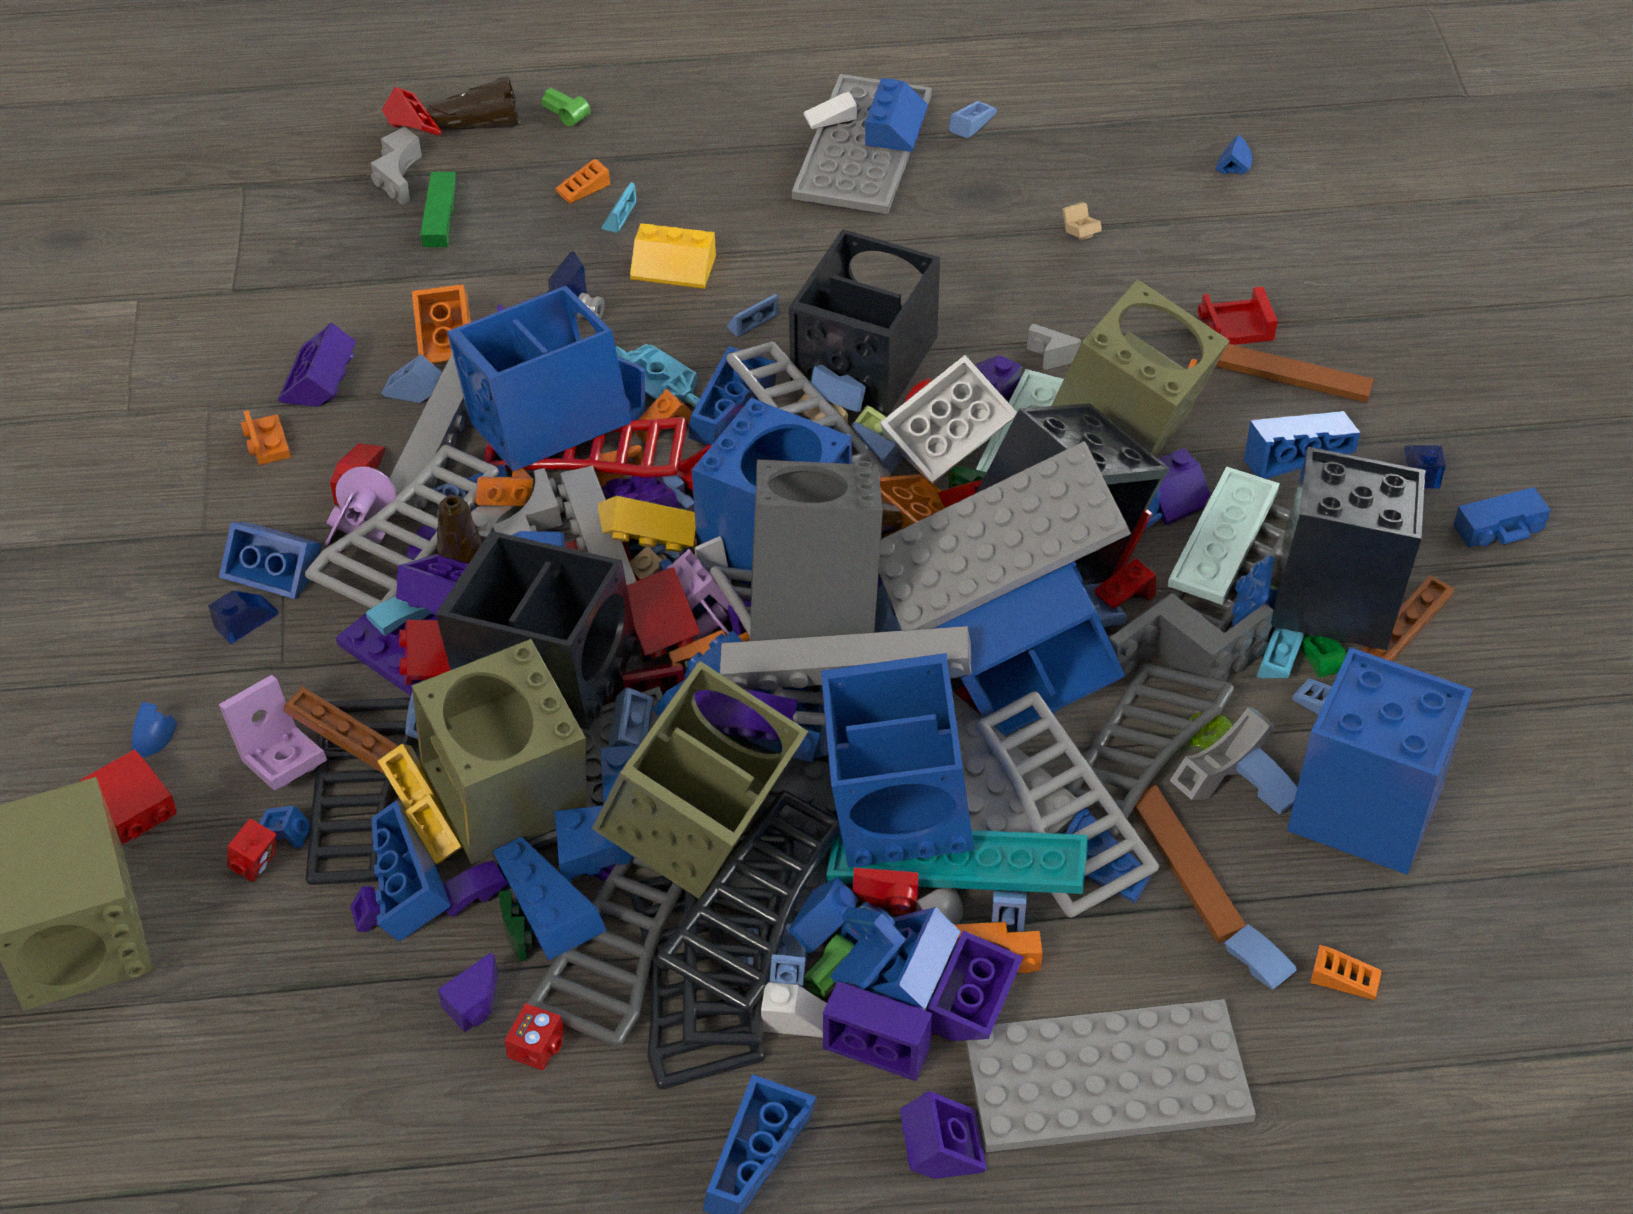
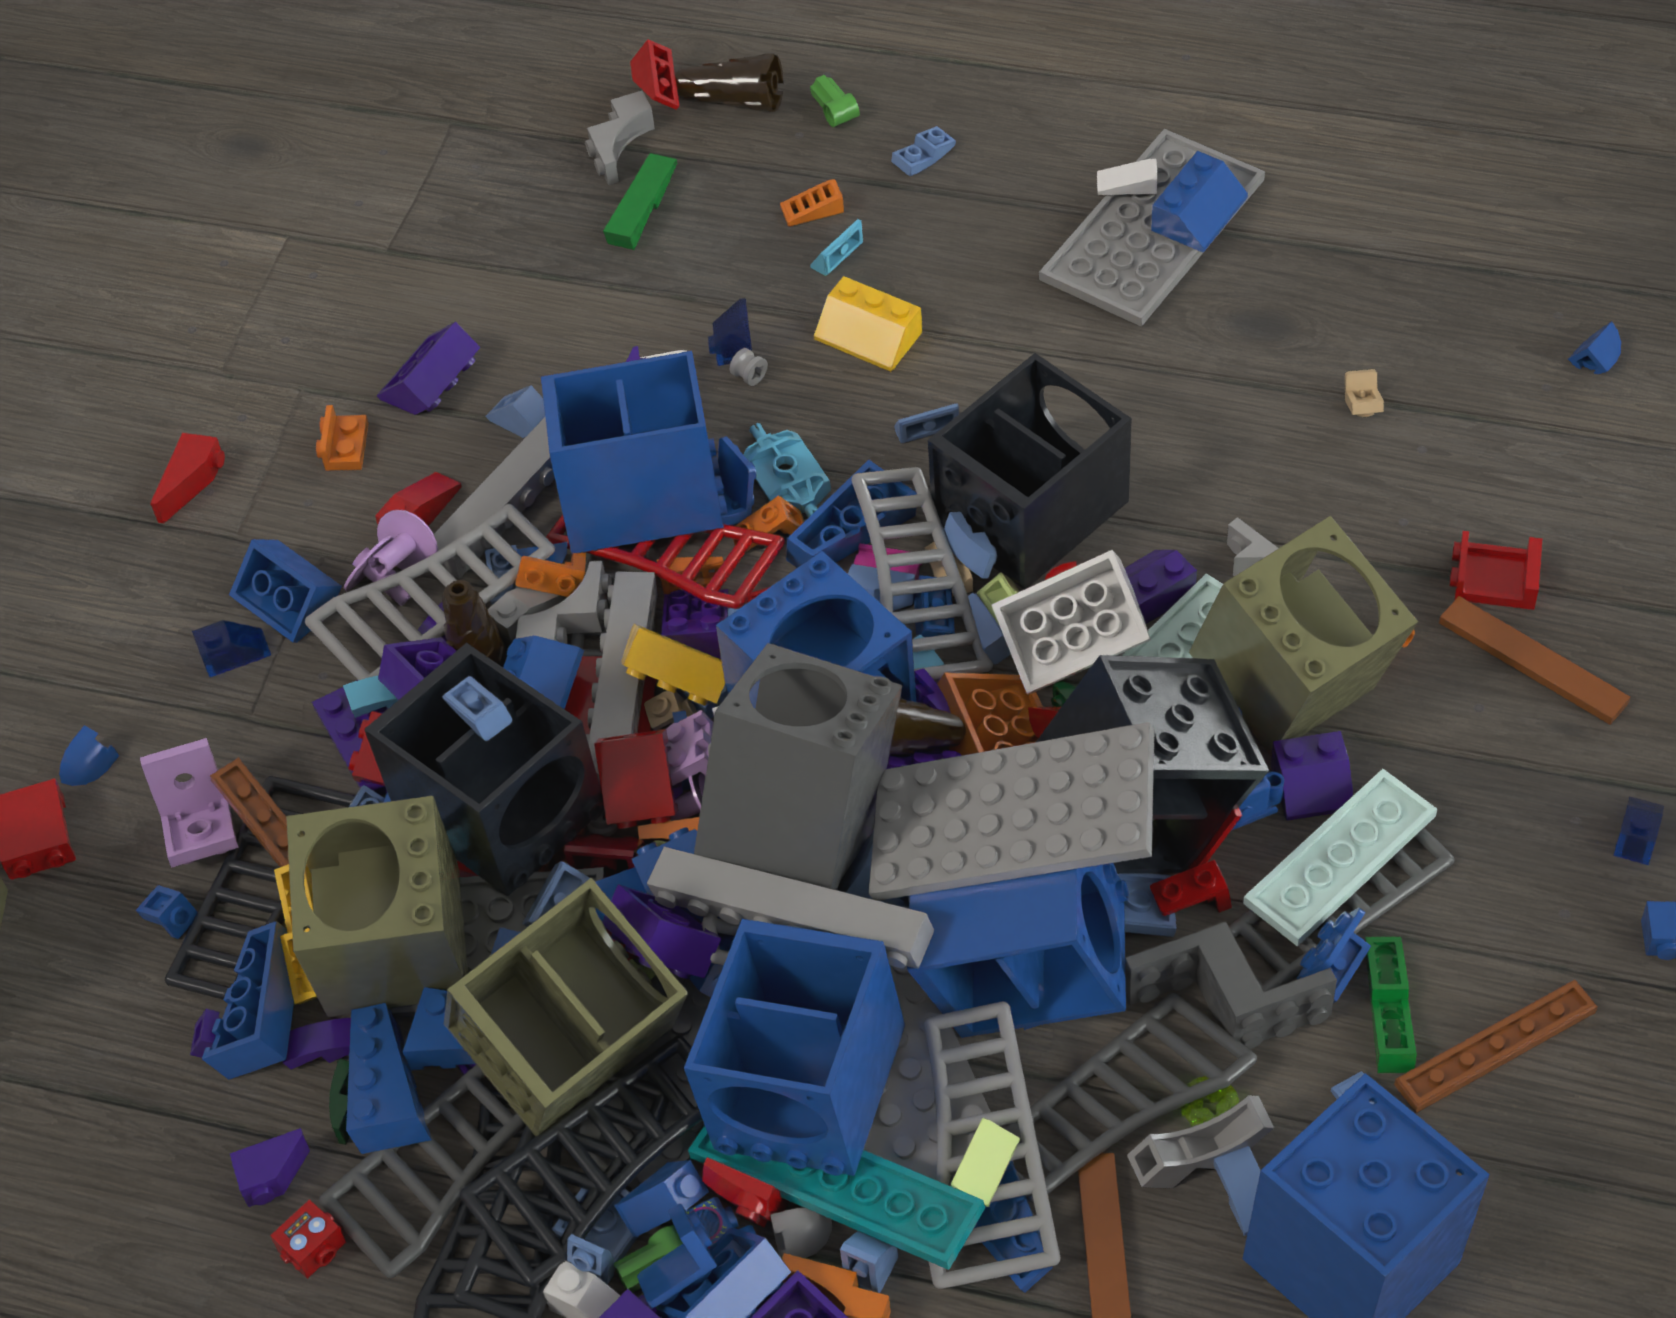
camera: 25 degrees right, 5 degrees up
(139, 491) = (187, 473): none -> red slope
(251, 850) = (118, 931): red head -> none
(435, 314) = (582, 338): orange slope -> none
(528, 572) = (478, 708): none -> medium blue slope
(656, 127) = (925, 151): none -> medium blue slope
(971, 119) = (1296, 222): medium blue slope -> none
(1073, 806) = (985, 1161): none -> yellowish green slope
(1280, 654) = (1339, 1028): medium azure slope -> none
(1281, 443) = (1491, 758): blue wedge -> none
(1348, 548) = (1454, 927): black container -> none

